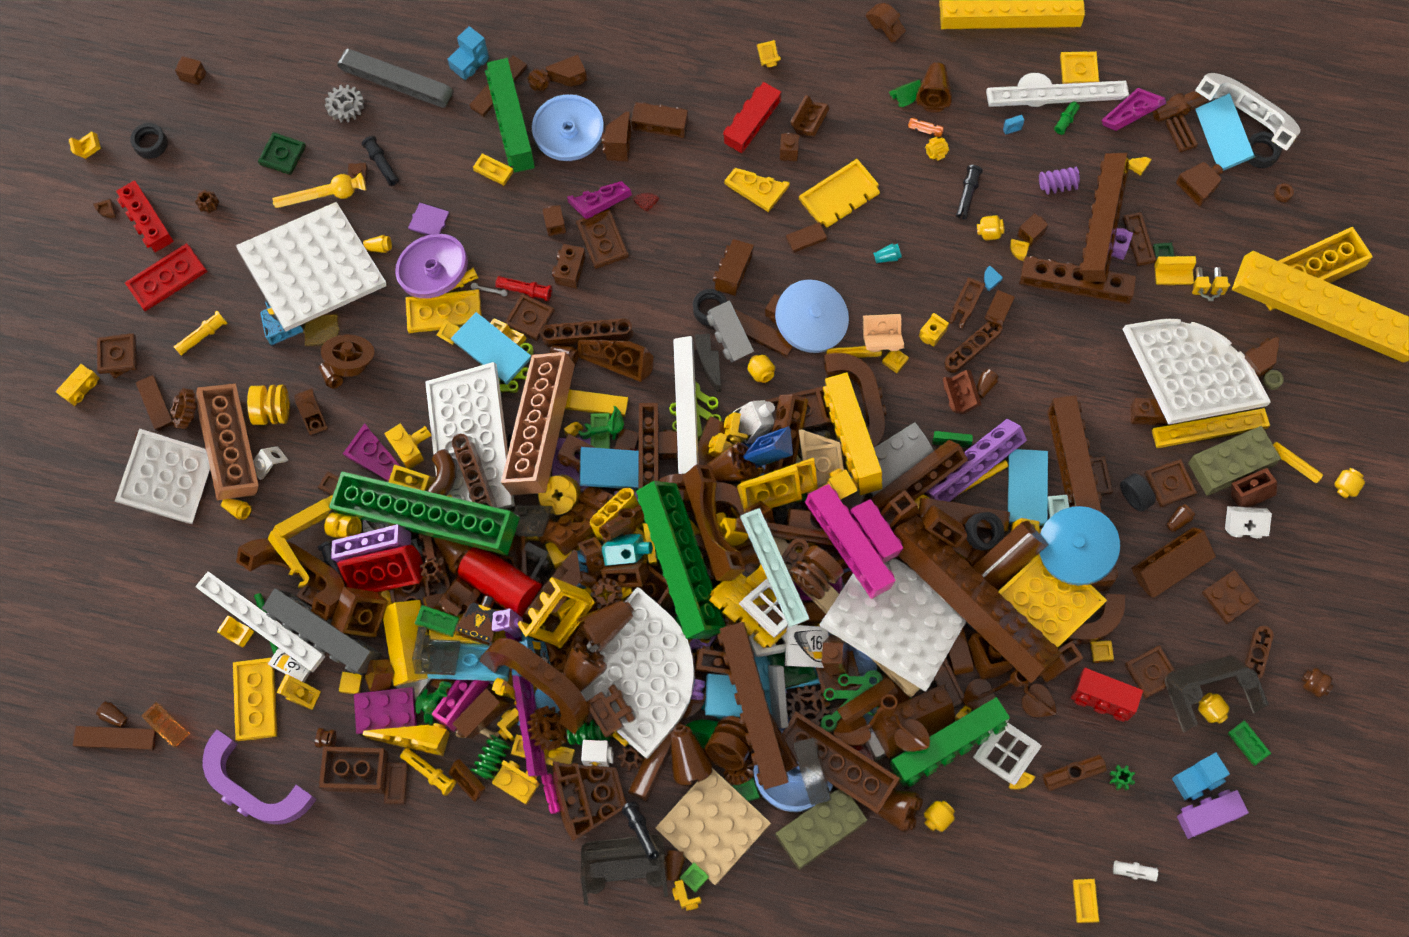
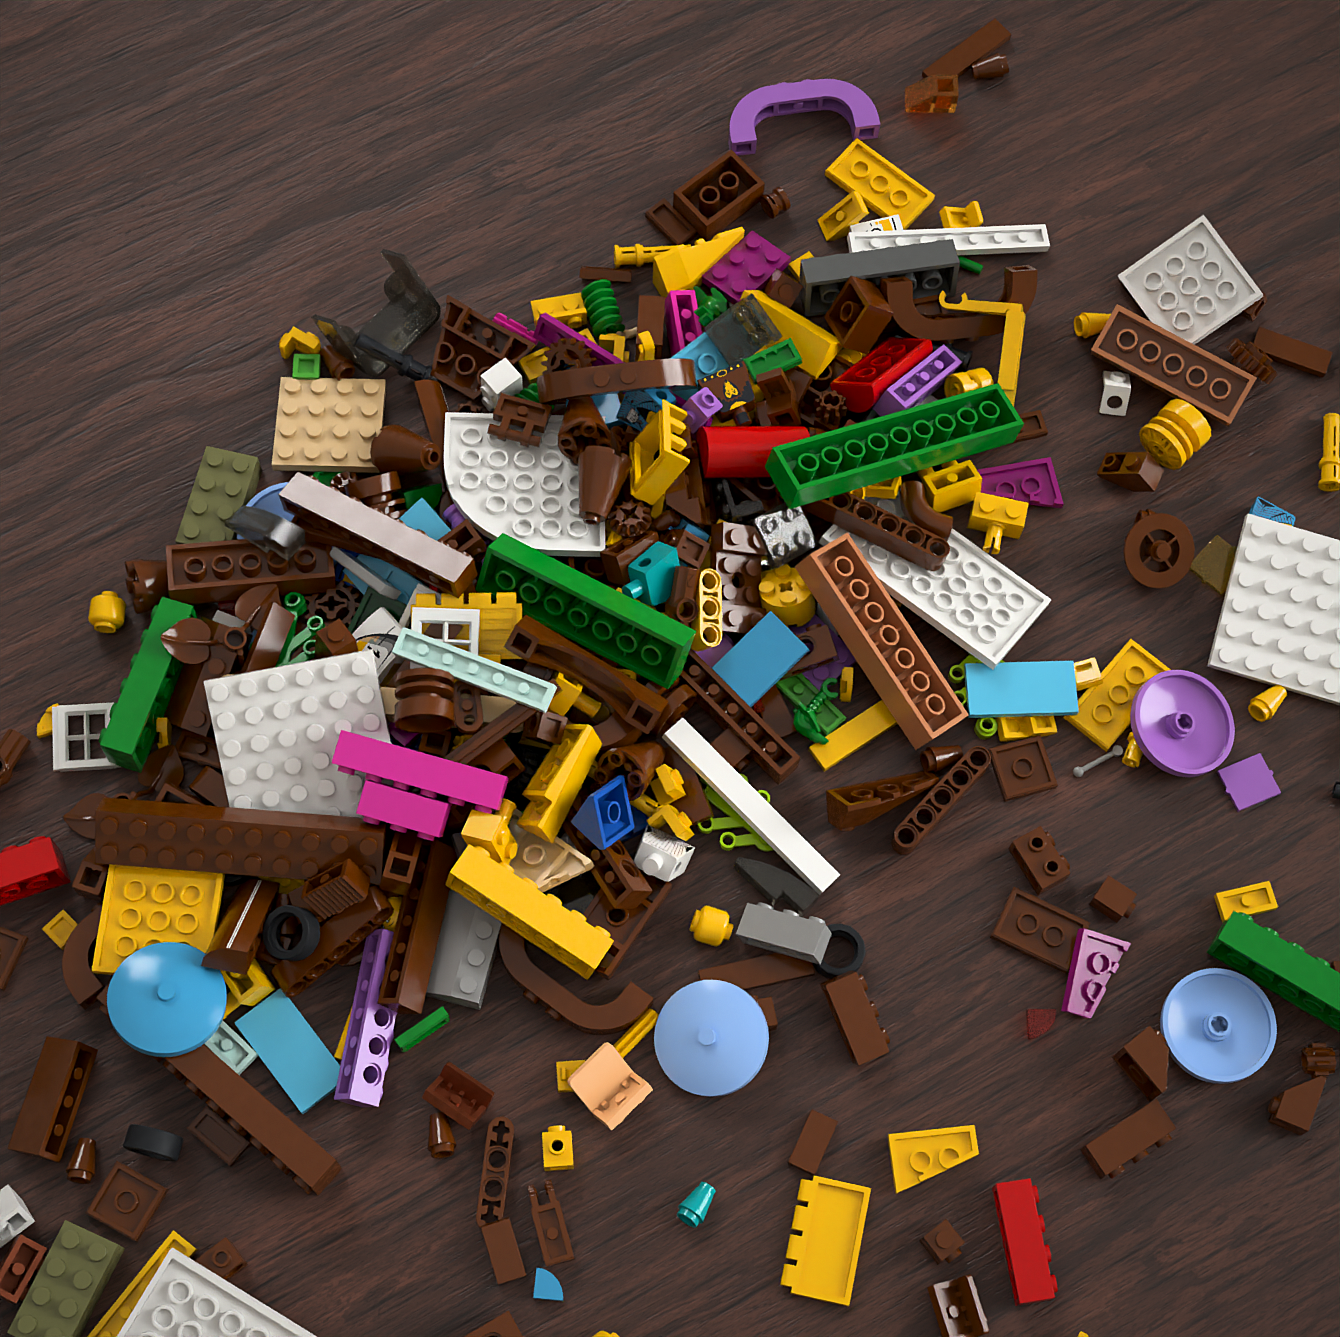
camera: 130 degrees right, 0 degrees up
(532, 289) = (1051, 798): red pin -> none

